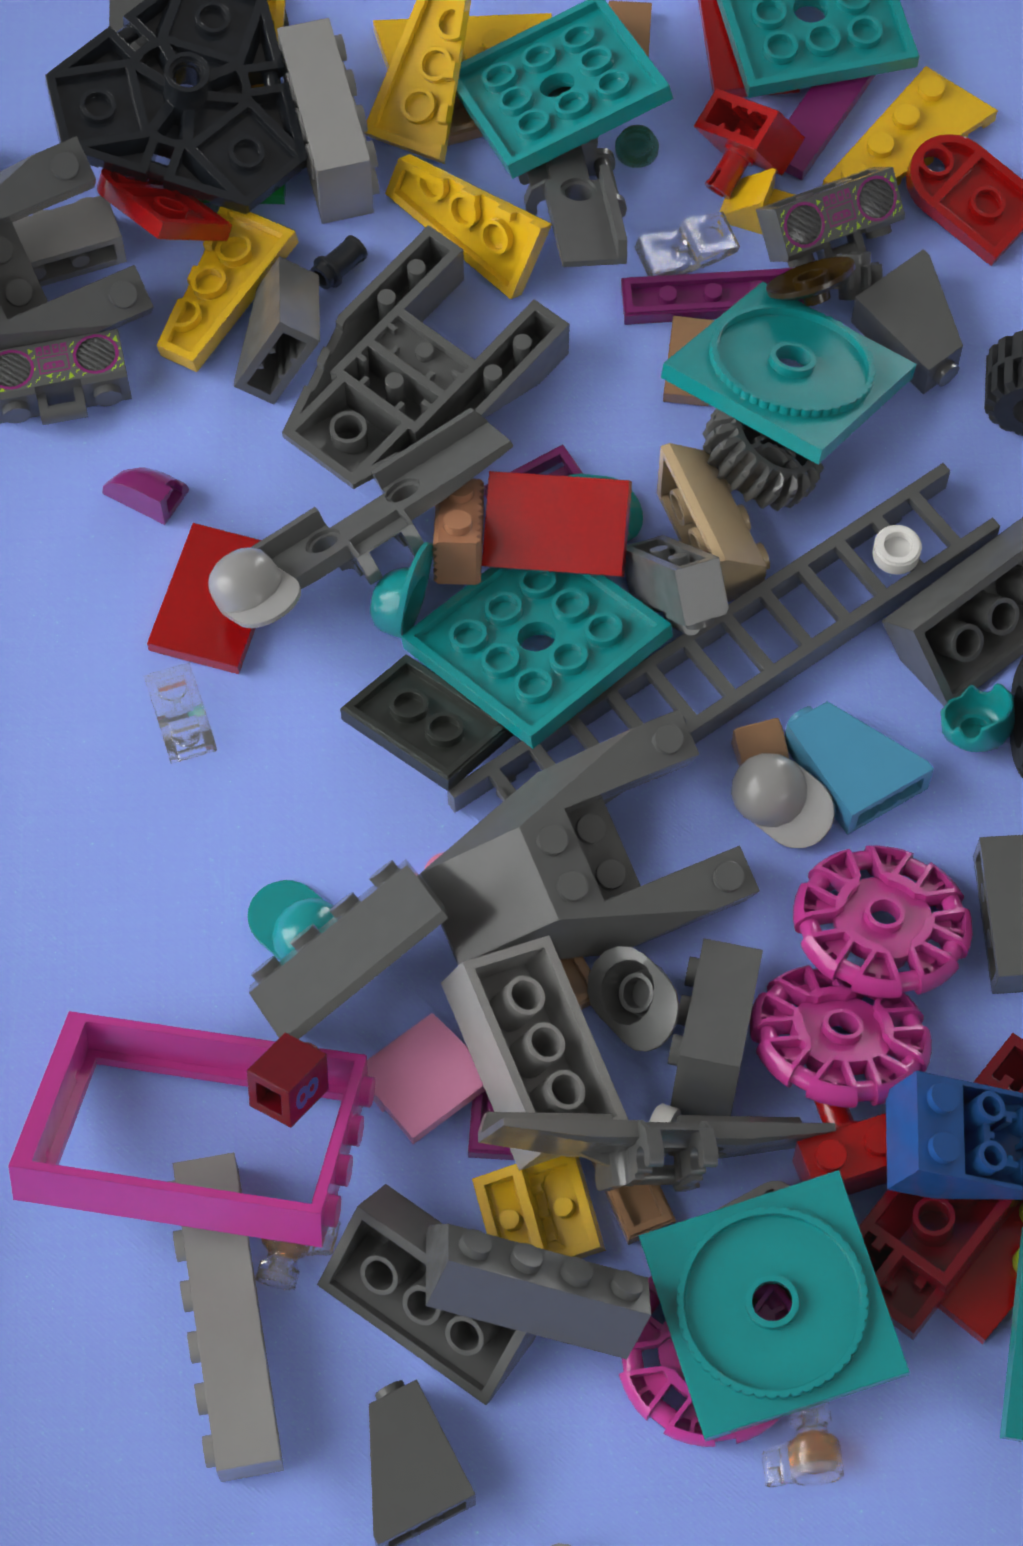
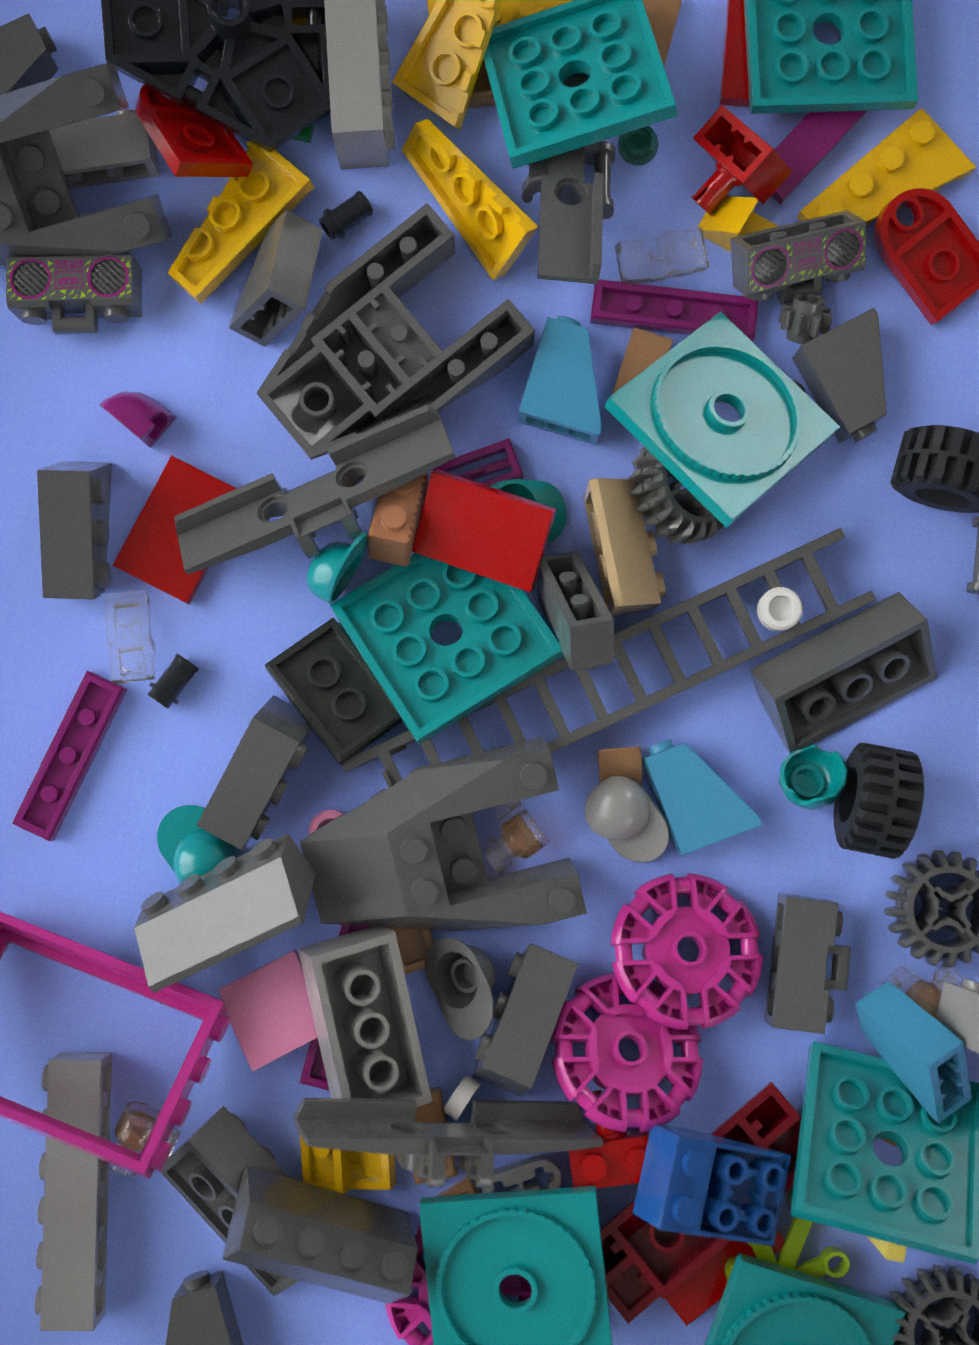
camera: 10 degrees right, 20 degrees up
(102, 607) = (74, 529): none -> dark grey wedge
(132, 852) = (69, 756): none -> magenta tile
(233, 757) = (172, 681): none -> black pin
(252, 588) = (201, 550): light grey cap -> none
(288, 1079) = (147, 1026): dark red brick -> none
(354, 820) = (256, 774): none -> dark grey wedge
(611, 383) = (563, 384): none -> dark azure slope
(666, 836) = (519, 836): none -> clear piece
(811, 280) = (764, 323): dark brown dish -> none

